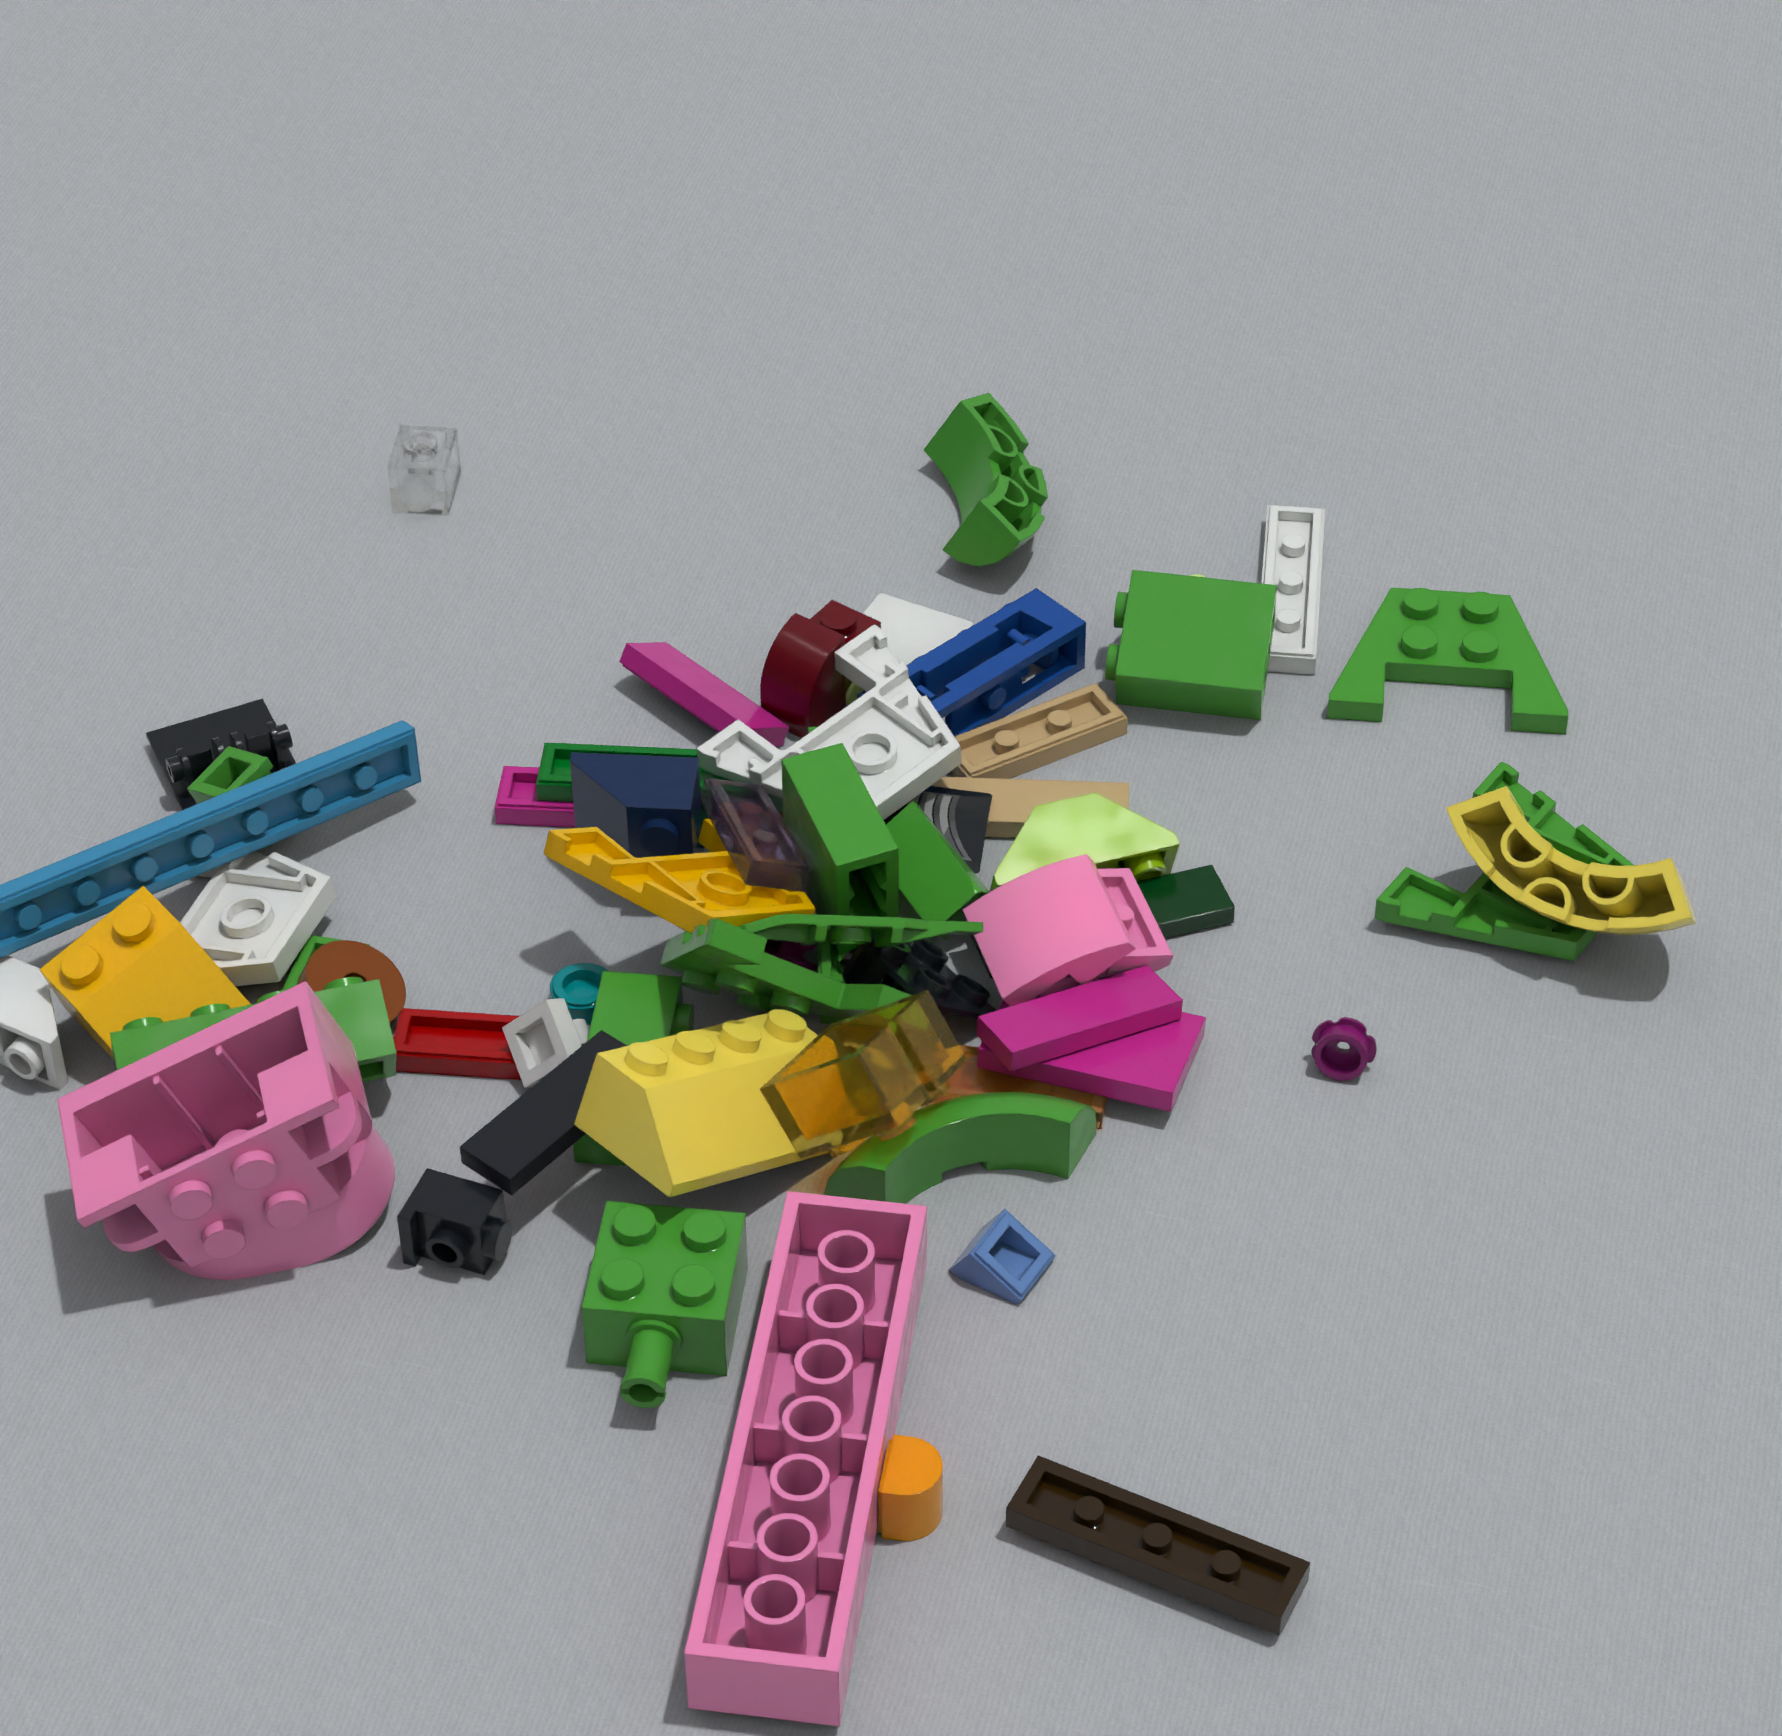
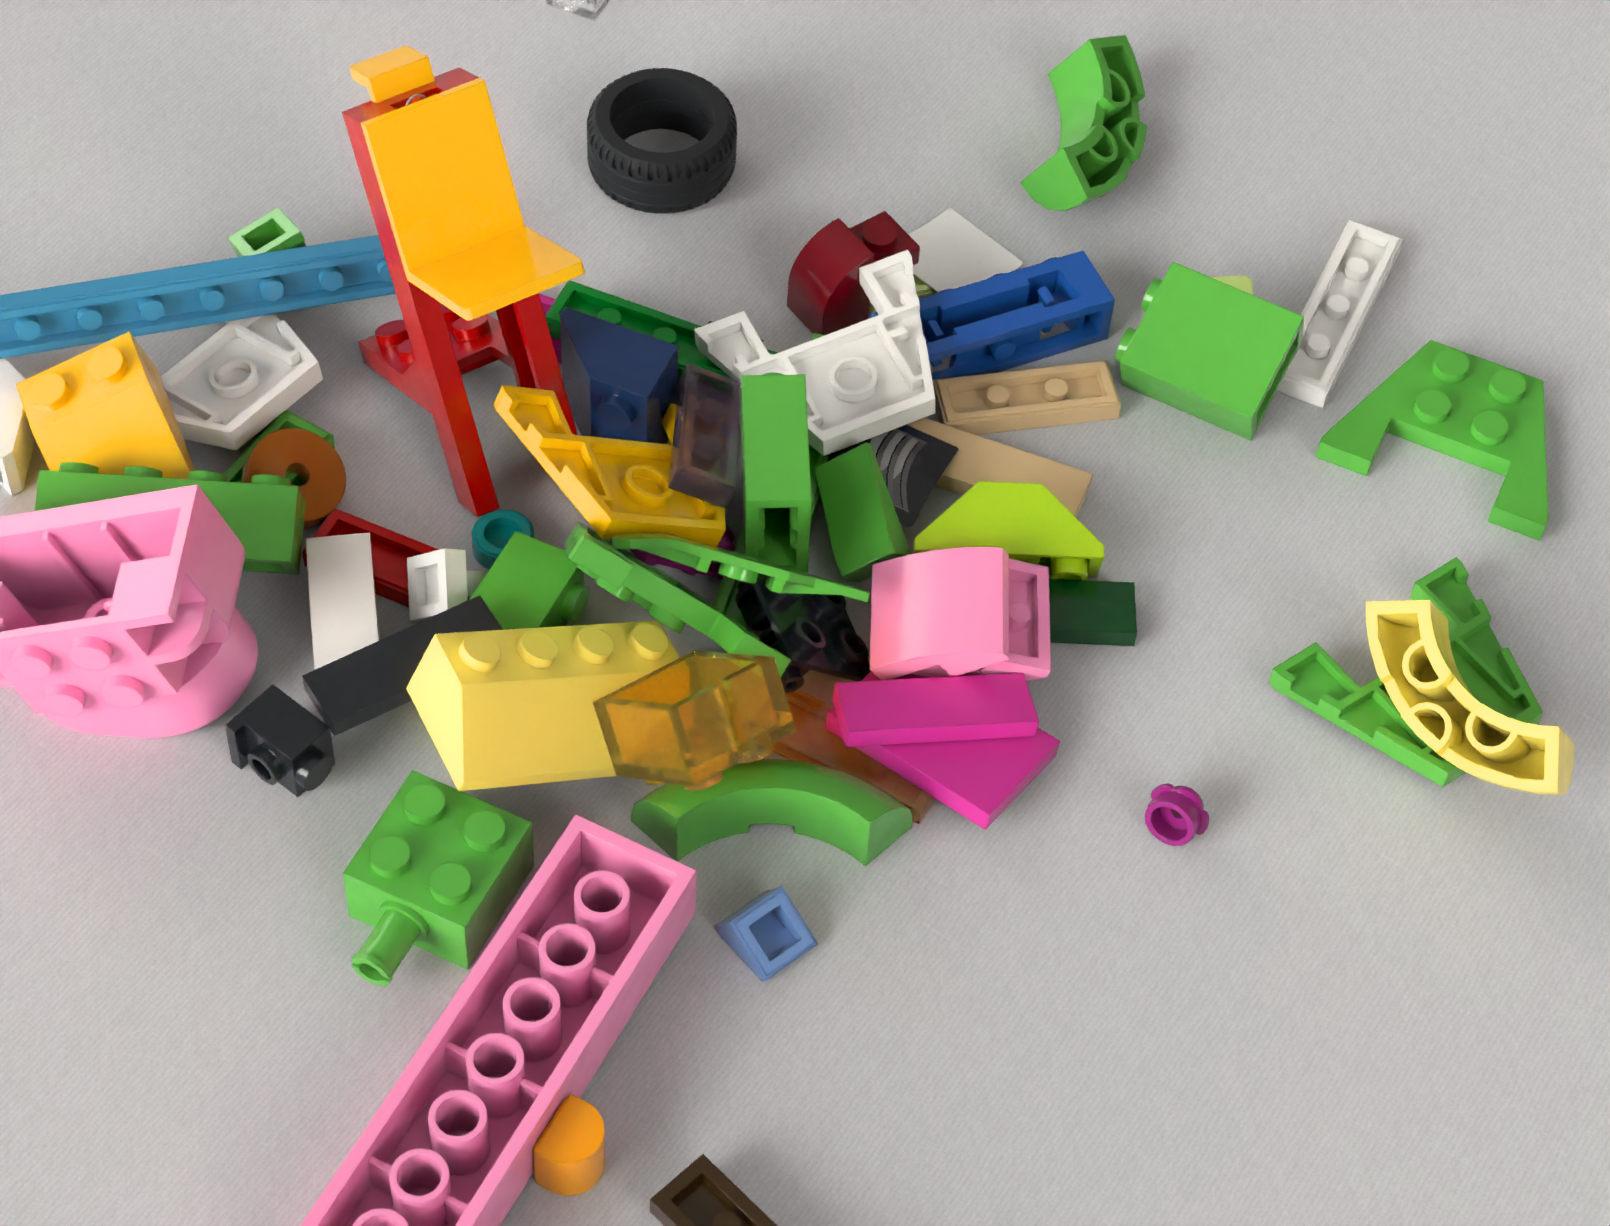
camera: 15 degrees right, 10 degrees up
(192, 745) = (306, 192): black hinge -> none
(453, 1083) = (341, 596): none -> white slope
(461, 677) = (452, 252): none -> piece
(568, 563) = (661, 179): none -> black tyre
(699, 690) = (738, 268): dark pink tile -> none

